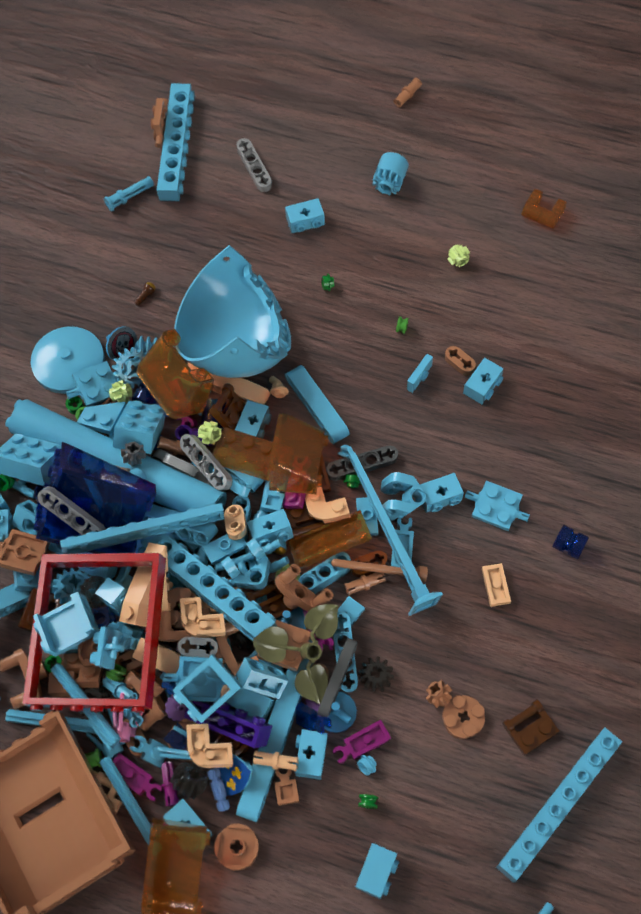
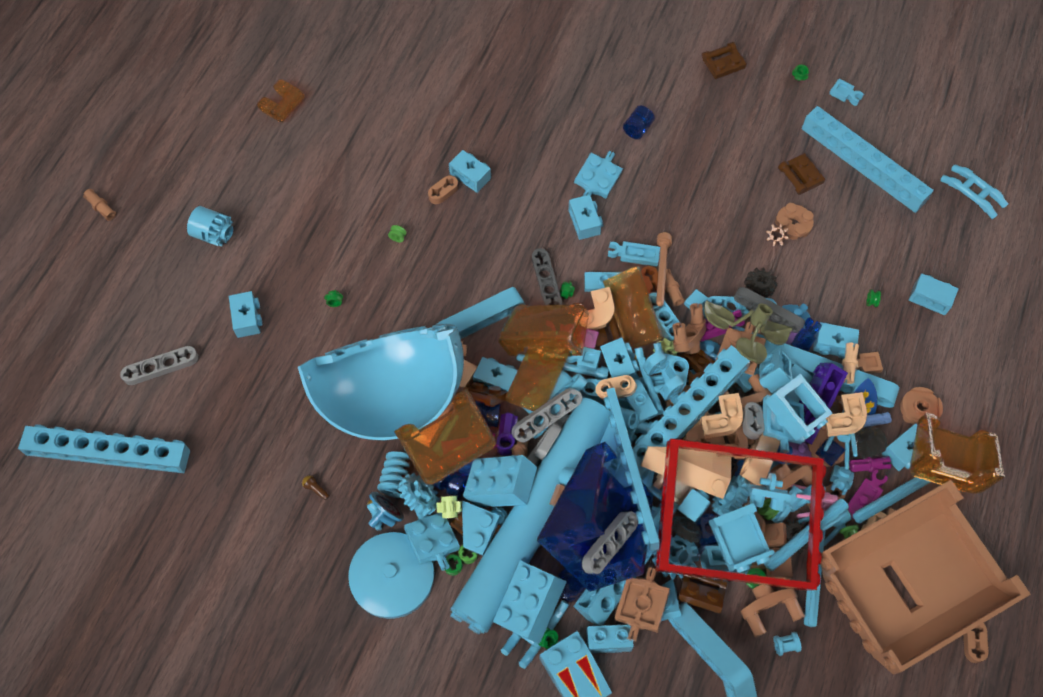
camera: 90 degrees left, 0 degrees up
(122, 197) = (172, 511): medium azure pin -> none
(133, 453) = (541, 478): flat silver gear -> none
(159, 121) = (77, 461): nougat plate -> none
(209, 432) = (513, 410): yellowish green gear -> none
(363, 741) = (821, 299): magenta plate -> none
(367, 765) = (841, 297): medium azure plate -> none
(399, 482) = (592, 236): medium azure piece -> none
(420, 373) = (455, 222): medium azure plate -> none
(420, 593) = (694, 236): medium azure piece -> none
(458, 255) = (324, 176): yellowish green gear -> none
(496, 585) = (675, 183): light nougat plate -> none

